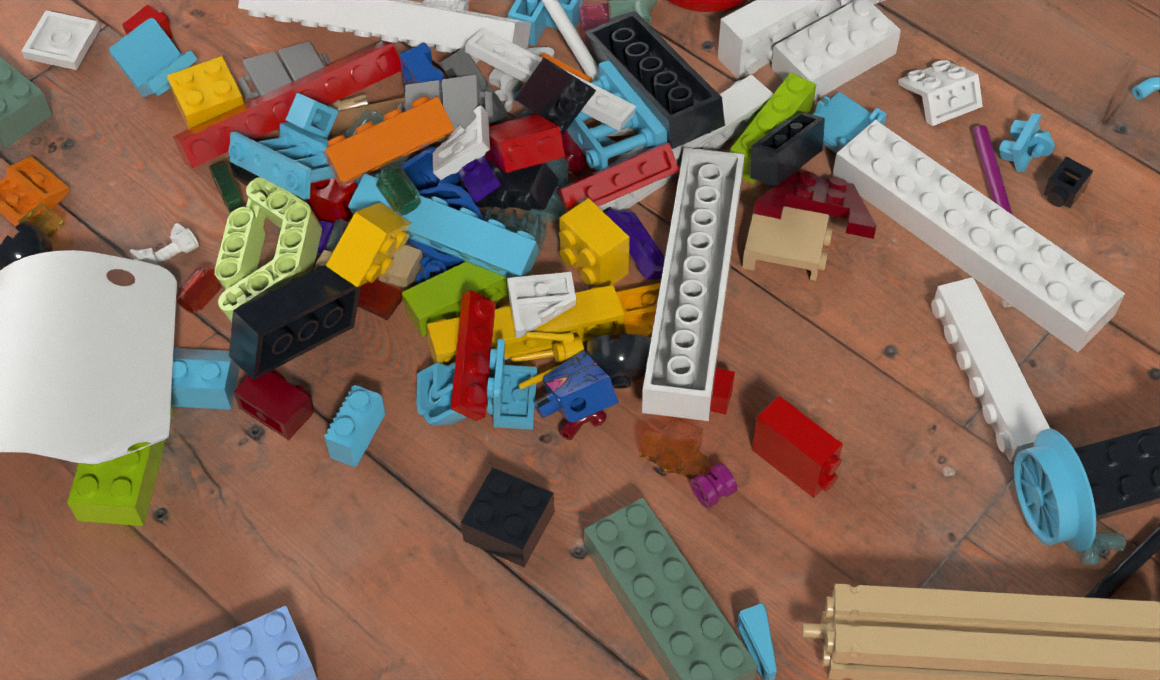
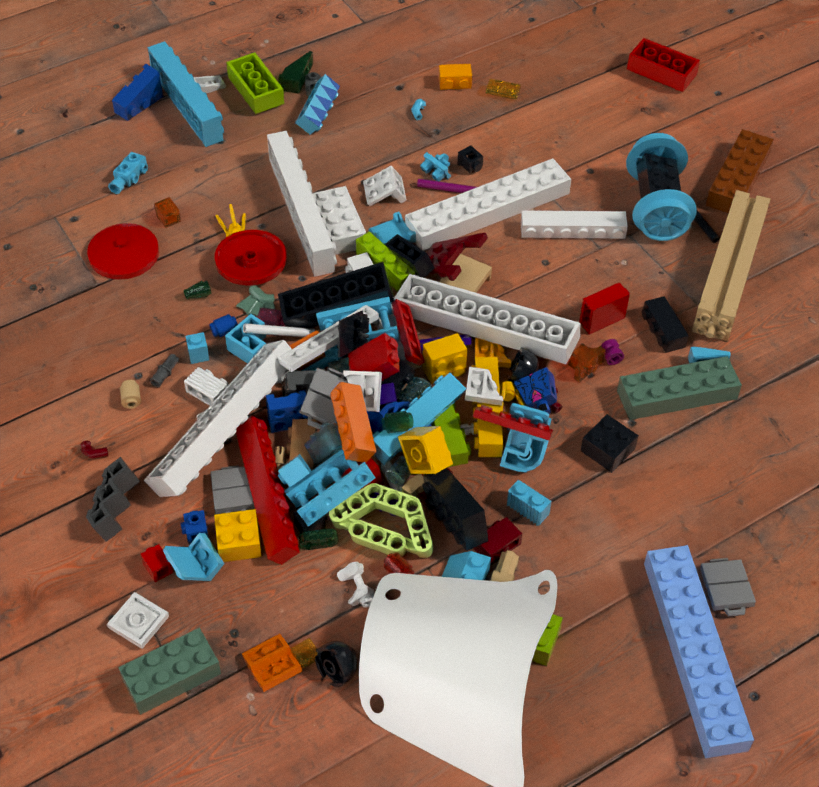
camera: 75 degrees left, 5 degrees down
(210, 424) = (506, 567): none -> tan piece
(213, 45) = (194, 524): none -> blue brick
(812, 557) = (664, 324): none -> black brick

